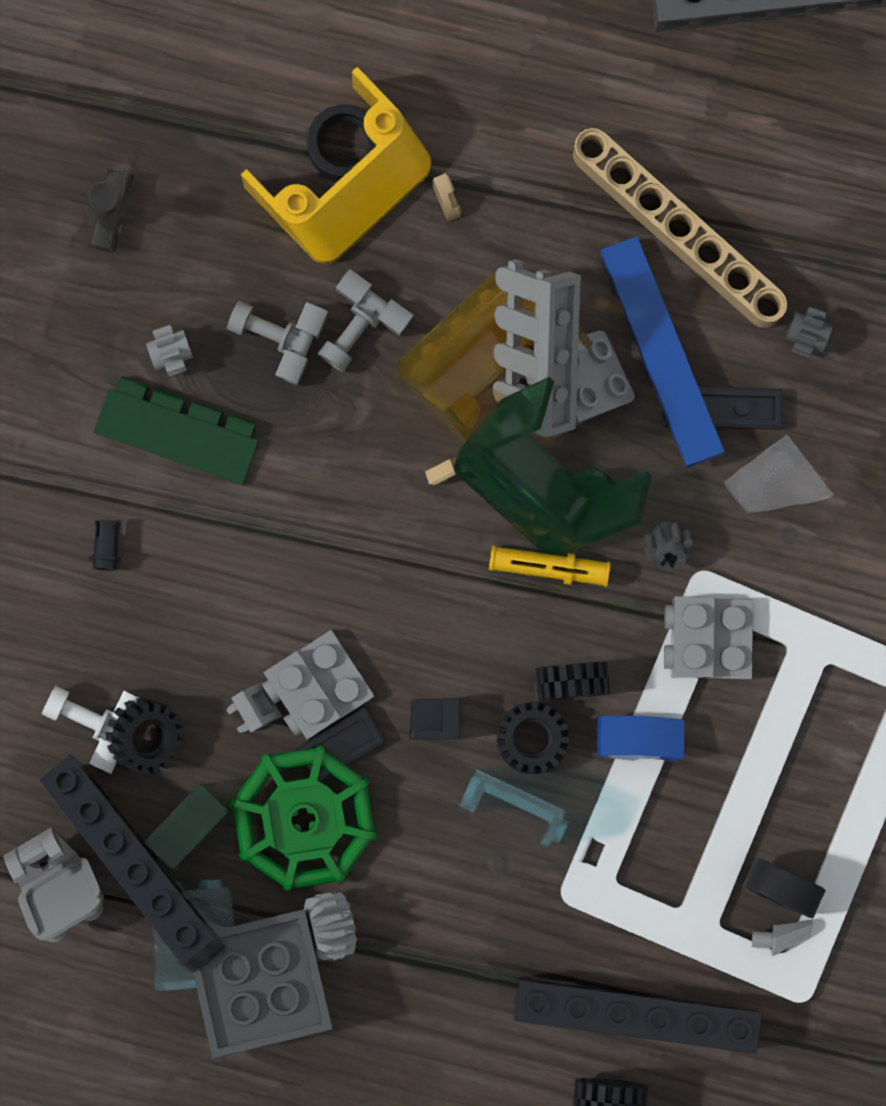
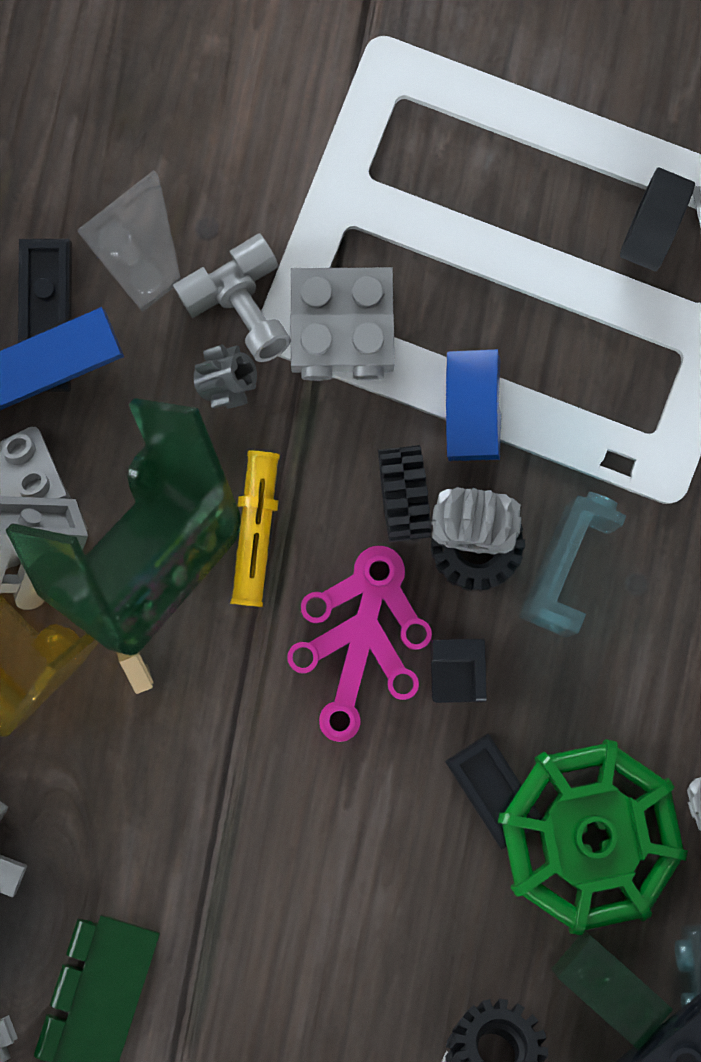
camera: 90 degrees left, 0 degrees up
(255, 708) = (452, 906): light grey tile -> none
(317, 686) = (420, 826): light grey plate -> none
(465, 646) = (363, 634): none -> dark pink plant
(548, 733) = (476, 520): none -> light grey gear
(740, 554) = (233, 287): none -> light grey bar

